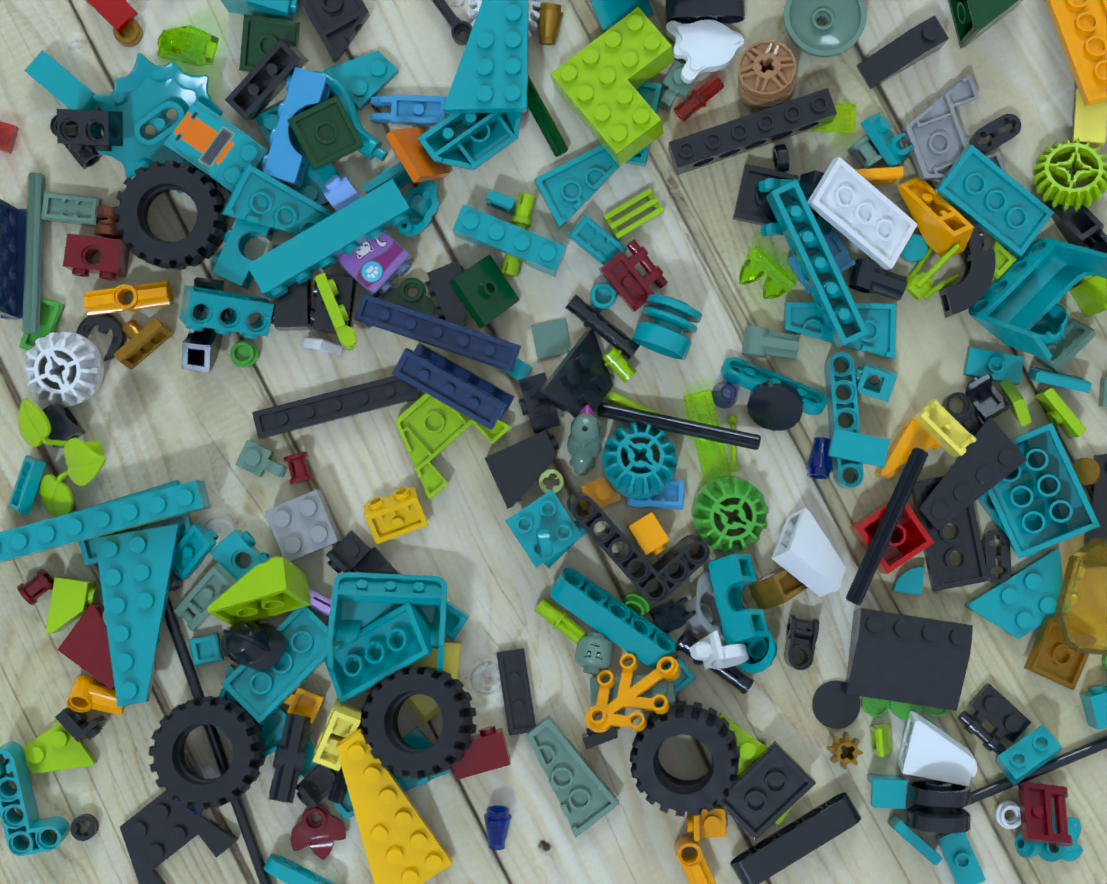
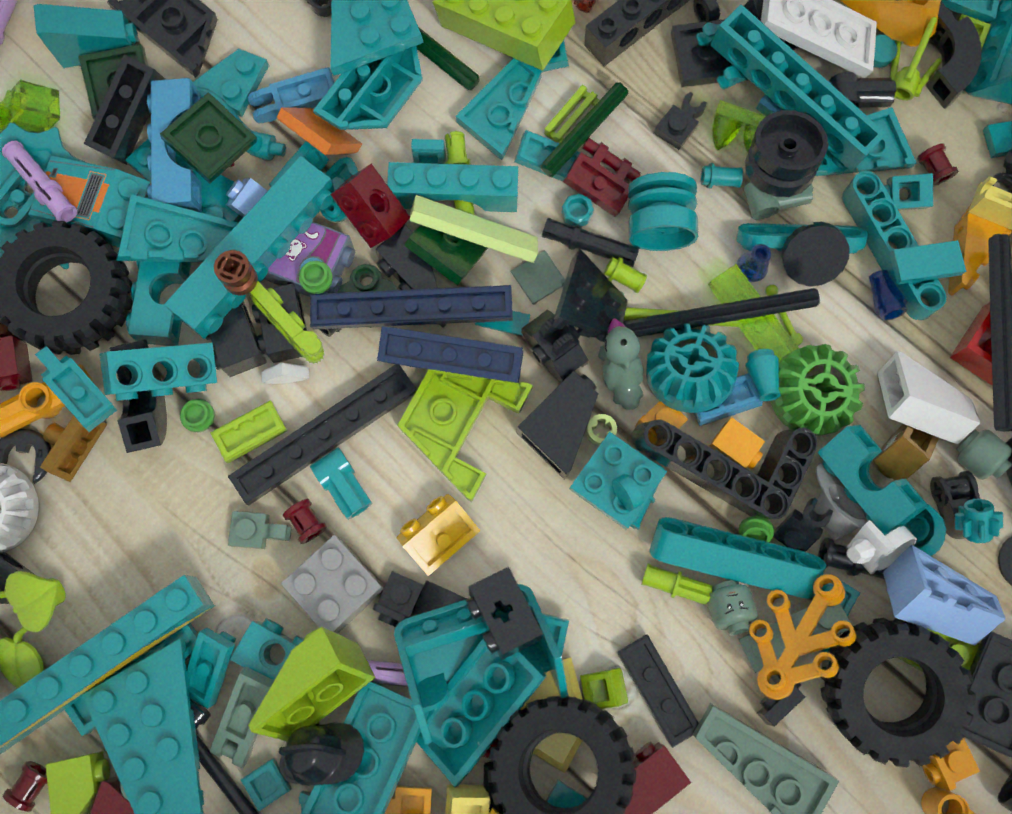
camera: 20 degrees left, 10 degrees down
(158, 304) = (75, 389): none -> teal hinge
(183, 132) = (45, 190): none -> lavender pin
(279, 382) = (249, 431): none -> lime plate
(310, 268) = (242, 277): none -> copper wheel
(334, 442) = (338, 478): none -> teal piece
(371, 281) = (315, 277): none -> bright green plate
(422, 581) = (504, 593): none -> black brick
(435, 237) = (370, 206): none -> dark red brick
(477, 675) = (605, 688): none -> lime slope
(511, 284) = (474, 229): none -> yellowish green tile
(634, 230) = (584, 129): none -> dark green axle
(693, 484) = (764, 372): none -> teal cone
(716, 251) = (680, 123): none -> black plate
(731, 310) = (721, 176): none -> teal pin
(747, 706) = (940, 598): none -> light blue wedge
(783, 317) = (786, 153): none -> black wheel
(800, 661) = (978, 520): none -> teal gear
(836, 612) = (984, 454): none -> sand green head
(912, 365) = (937, 163): none -> dark red bush

